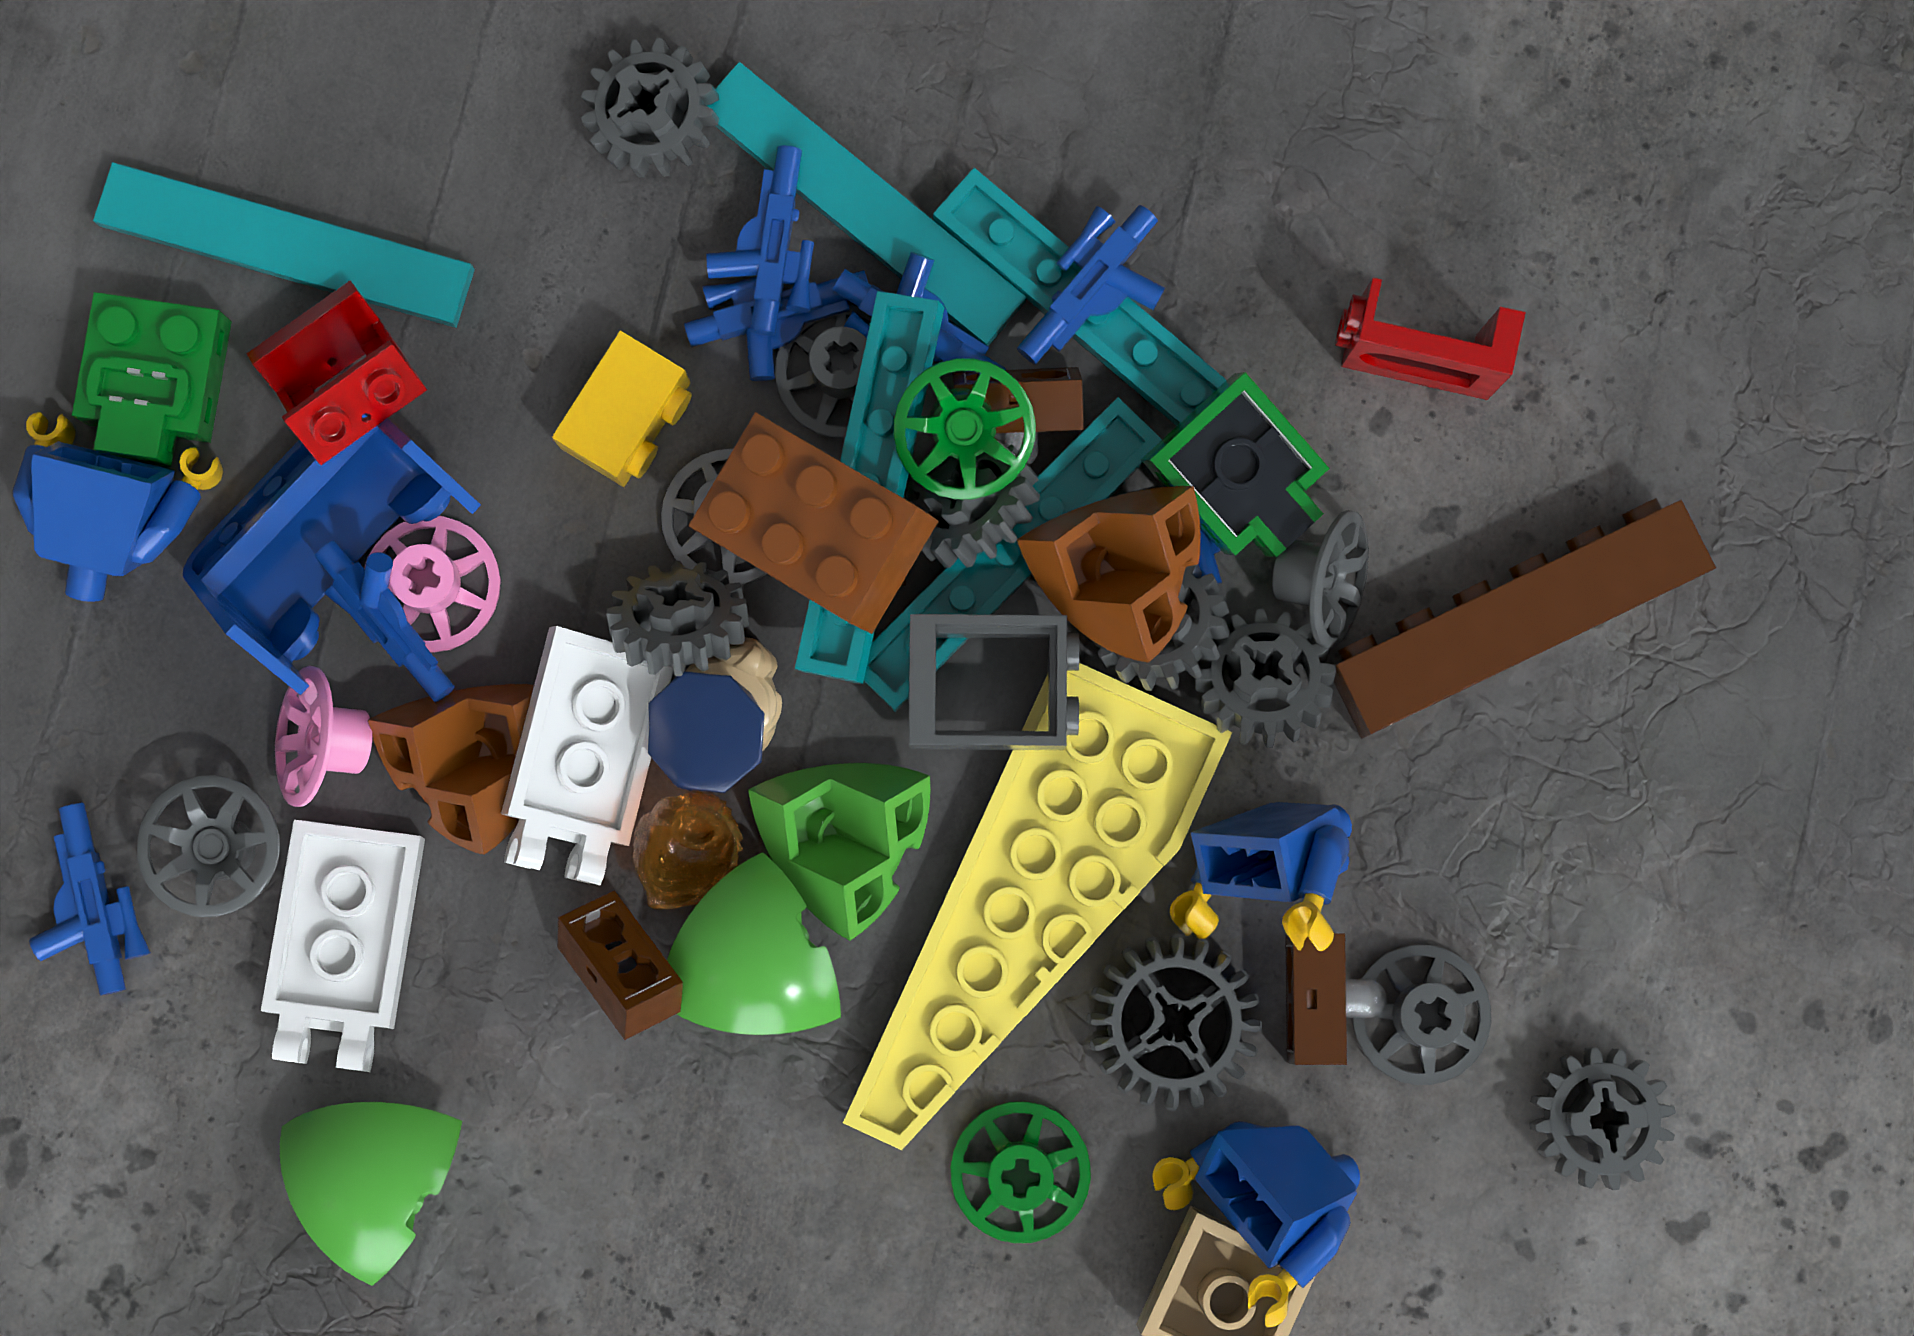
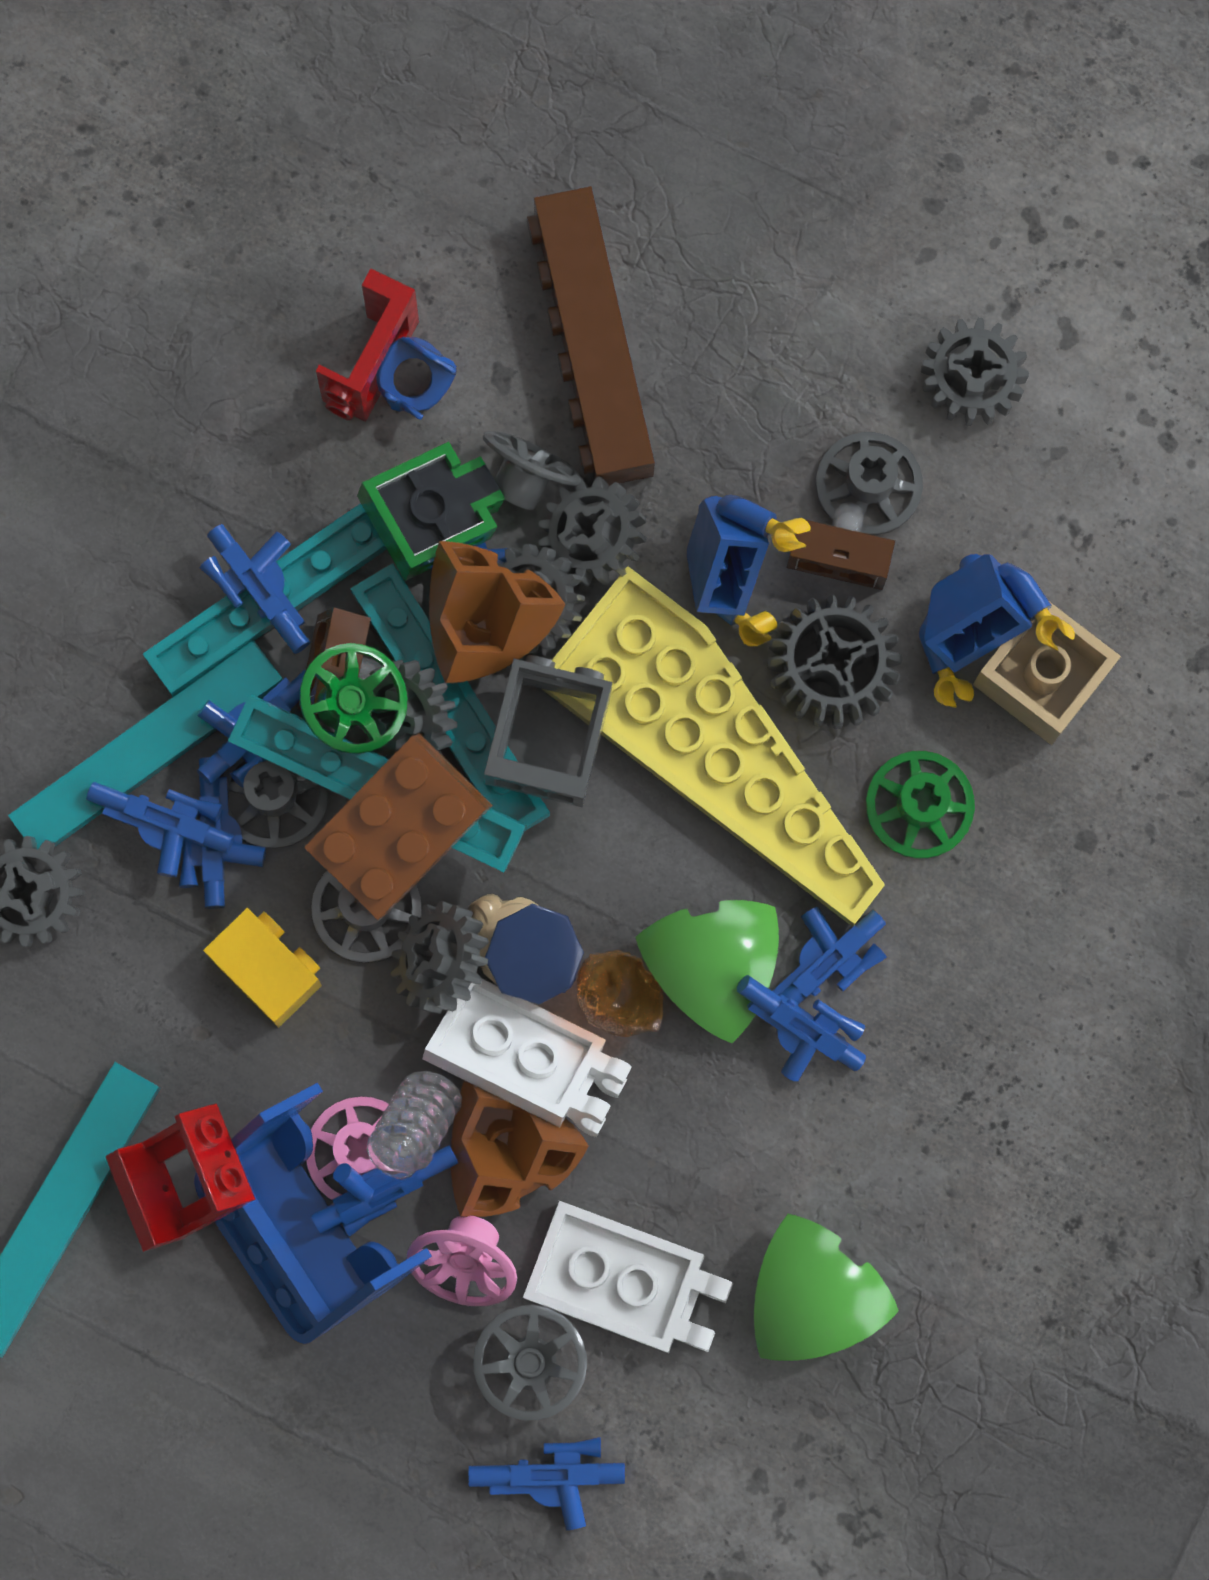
camera: 80 degrees left, 5 degrees down
(101, 508) = (238, 1396): blue torso -> none
(150, 375) = (138, 1337): green piece -> none
(462, 635) = (414, 1124): none -> clear piece
(619, 964) = (697, 1062): reddish brown piece -> none
(691, 1087) = (802, 1032): none -> blue piece
(795, 1092) = (827, 954): none -> blue piece
(843, 835) = (635, 873): bright green brick -> none
(1445, 415) = (442, 375): none -> blue piece

